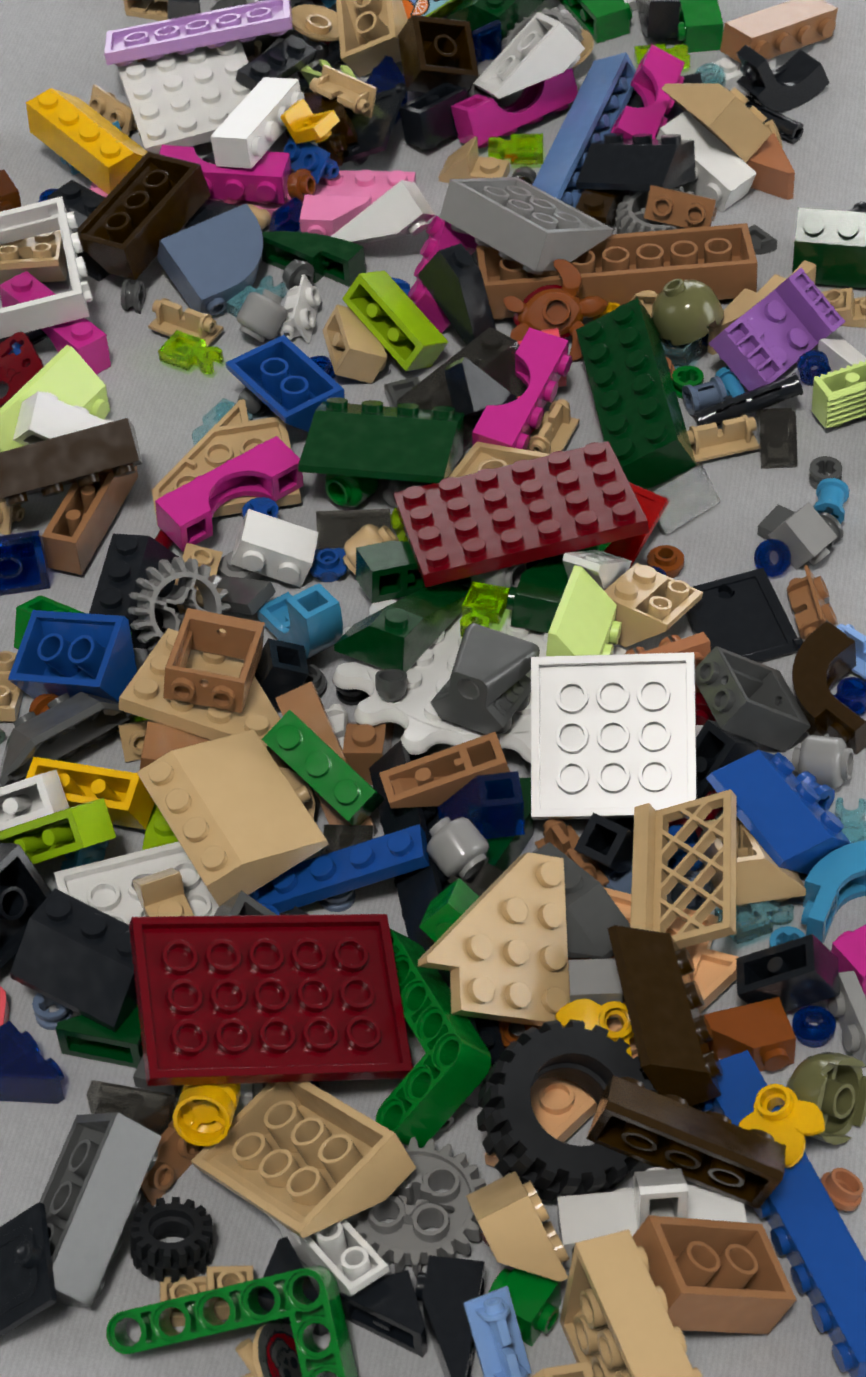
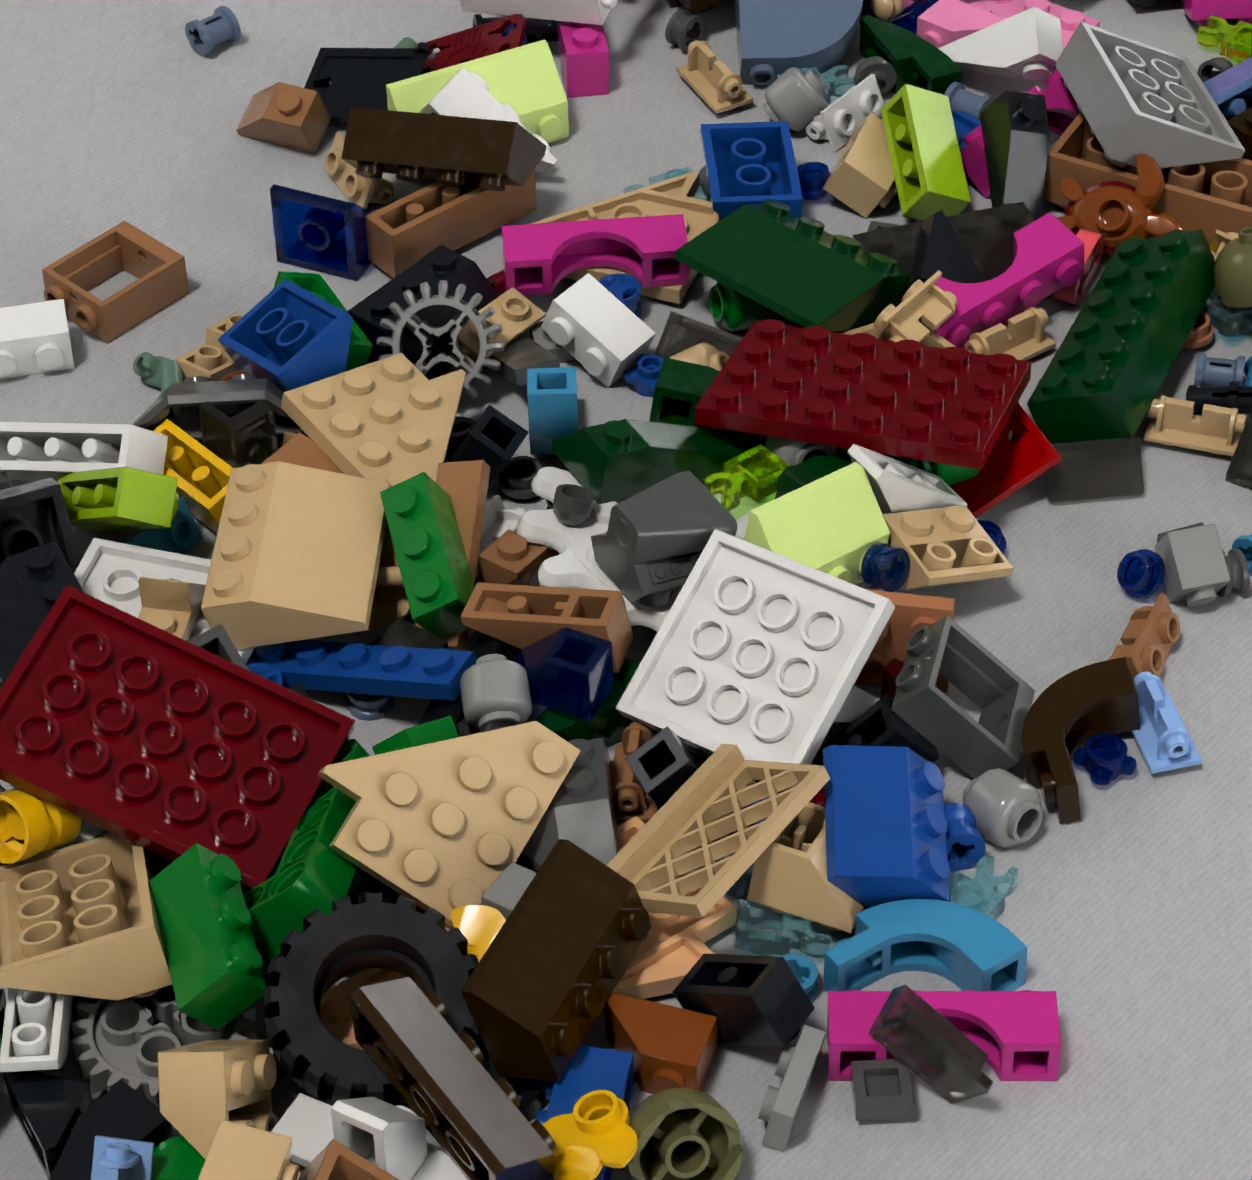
camera: 30 degrees right, 5 degrees down
(100, 749) = (240, 439): none -> clear smoke panel
(187, 350) = (691, 105): clear neon green plate -> none
(201, 633) = (408, 359): medium nougat window -> none
(389, 266) = (967, 101): none -> sand blue bush
(429, 1128) = (207, 936): none -> green brick
(467, 164) = (1171, 35): tan slope -> none
(502, 439) = (920, 303): none -> tan hinge
(630, 630) = (885, 567): none -> clear blue bush
(667, 558) = (1021, 527): dark orange plate -> none
(684, 376) = (1217, 346): green bush -> none
(744, 617) = (1048, 620): black container -> none
(813, 1035) = (746, 1074): clear blue plate -> none

